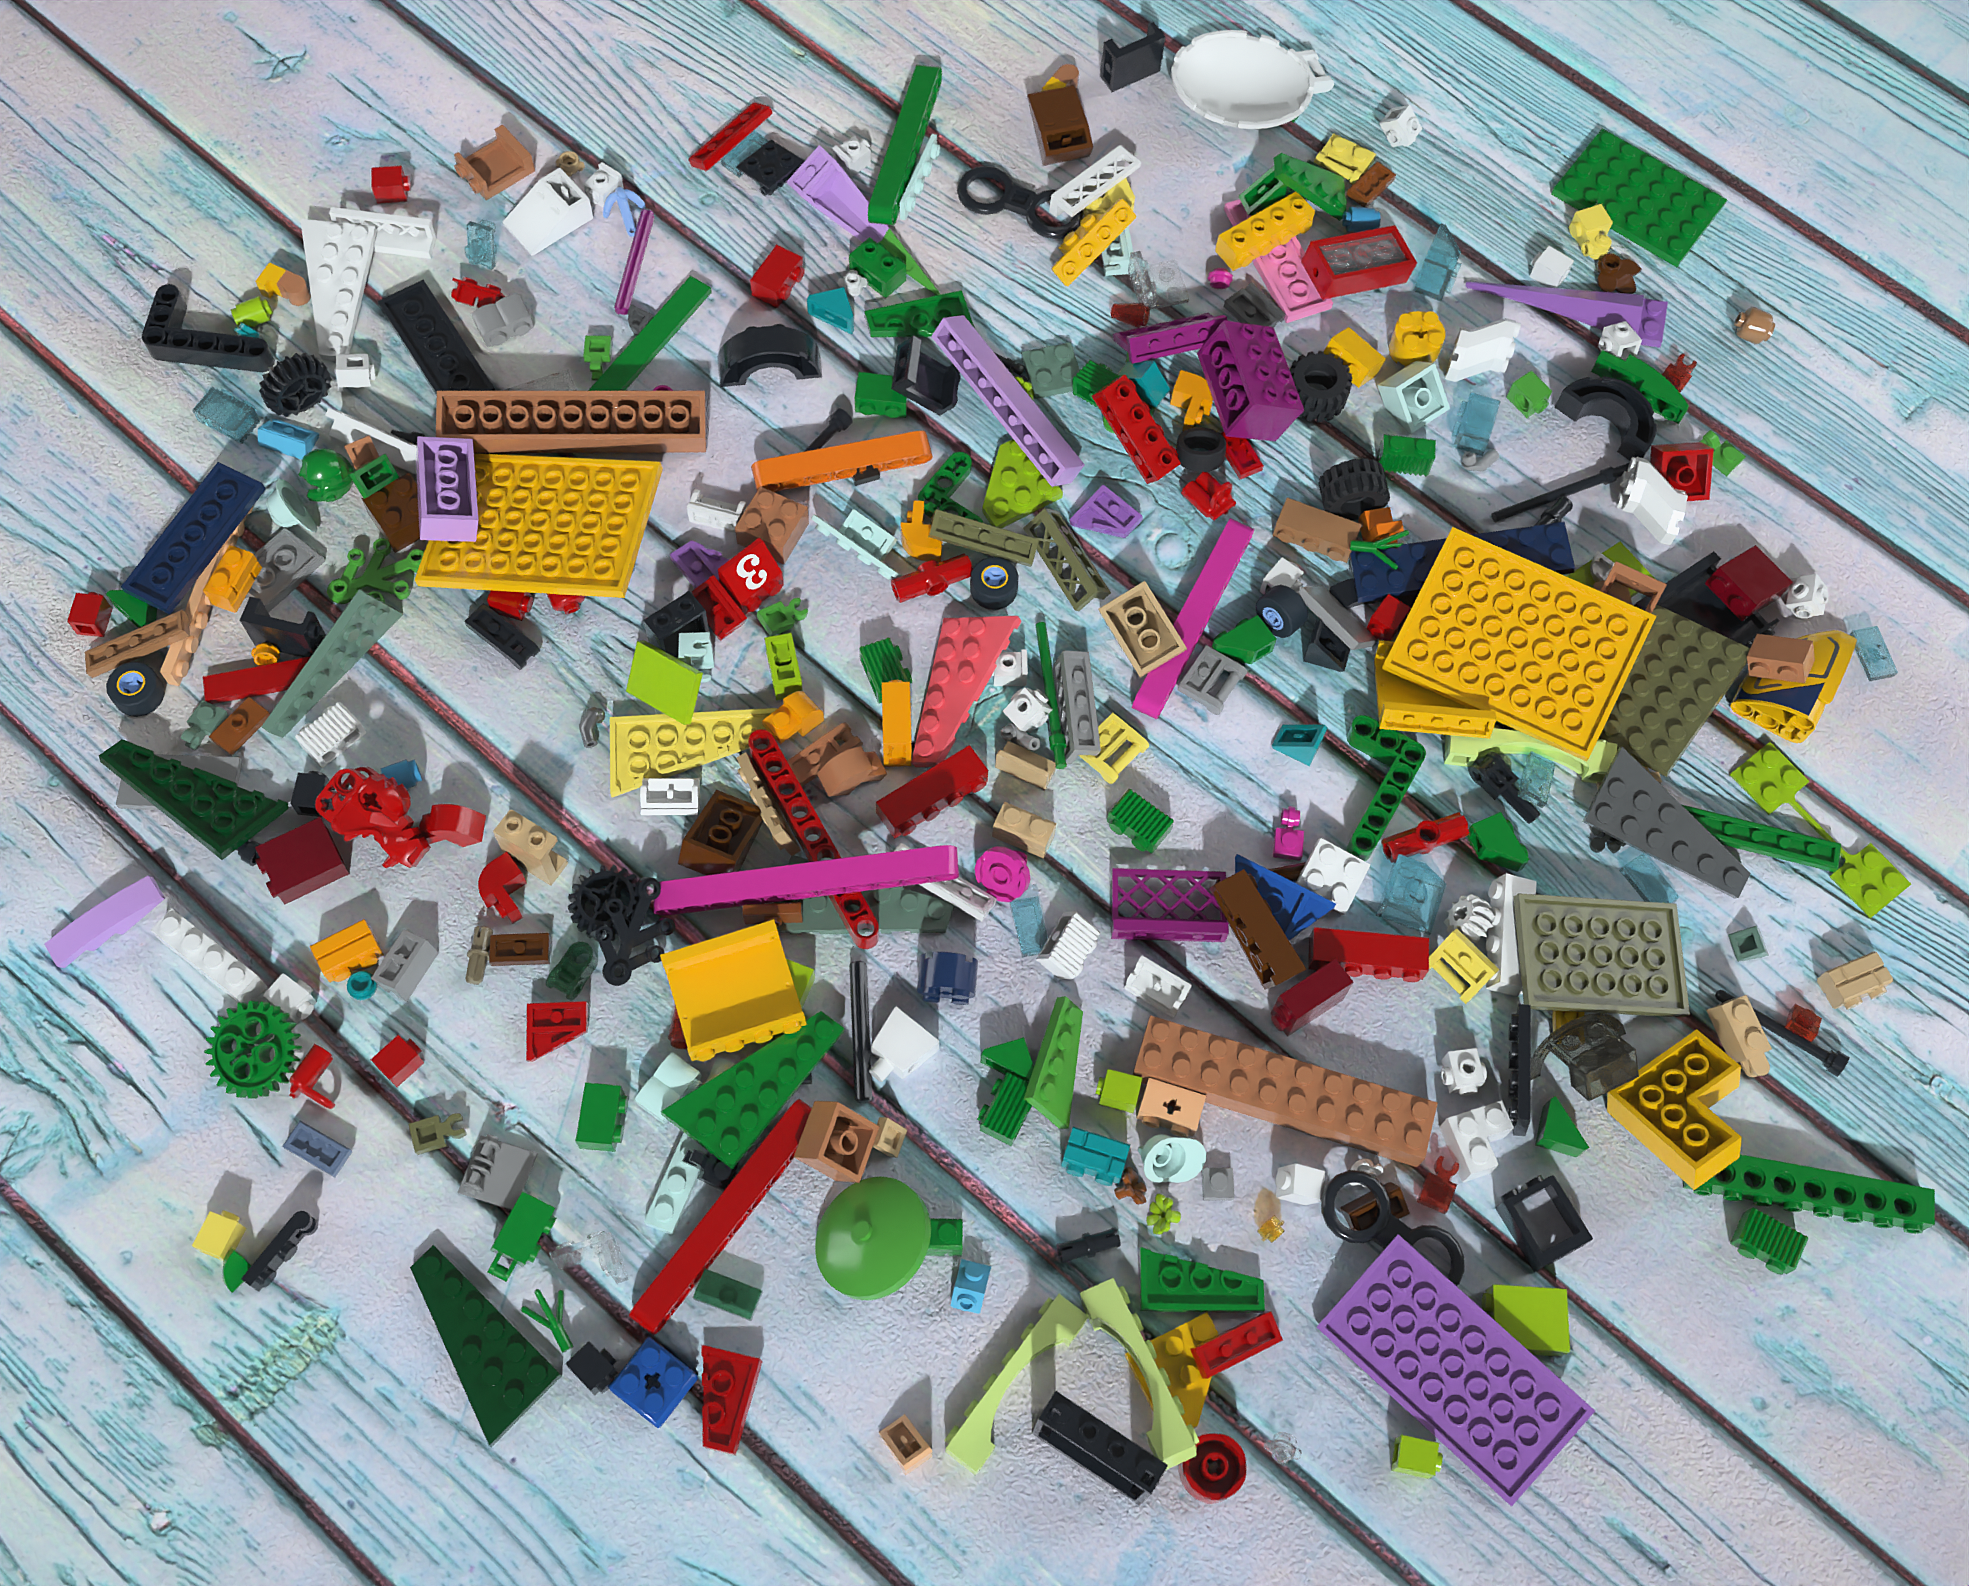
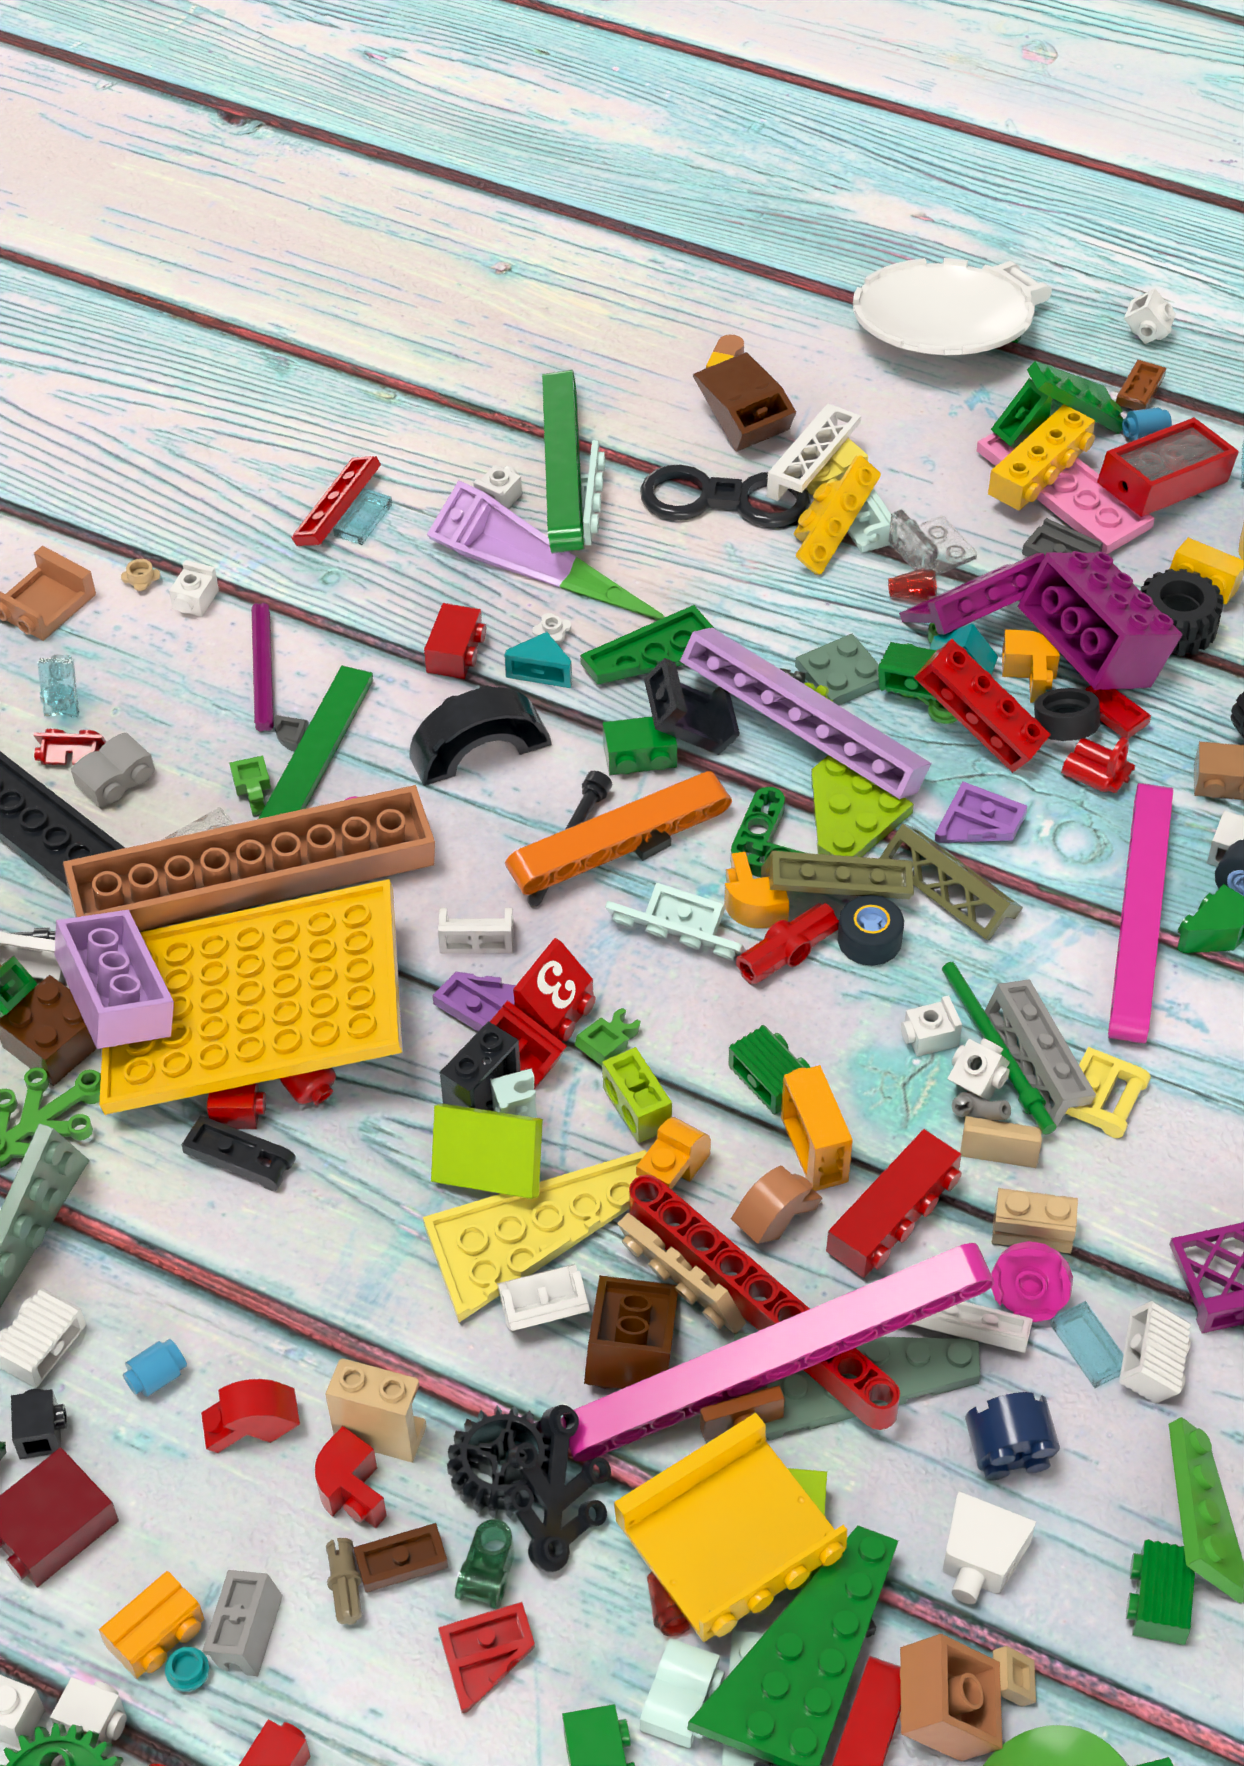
camera: 10 degrees left, 15 degrees down
(374, 808) = (127, 1429): red animal -> none
(548, 212) = (134, 632): white slope -> none
(591, 717) = (393, 1237): flat silver arm -> none
(621, 195) = (223, 593): light blue piece -> none
(770, 166) = (401, 521): black hinge -> none
(775, 521) = (555, 913): nougat brick -> none
(812, 758) = (729, 1187): nougat plate -> none
(860, 1032) = (918, 1544): black axle -> none
(878, 266) = (579, 600): green brick -> none
(958, 677) = (871, 1053): coral wing -> none
(1009, 1058) = (1138, 1520): green slope -> none
(1134, 61) = (804, 316): black panel -> none
(1139, 821) = (1180, 1172): green brick -> none
(1142, 629) = (1086, 935): tan slope -> none
(1205, 673) = (1184, 973): light grey plate -> none
(1220, 278) = (1006, 523): dark pink plate -> none
(1345, 158) = (1099, 365): light yellow plate -> none

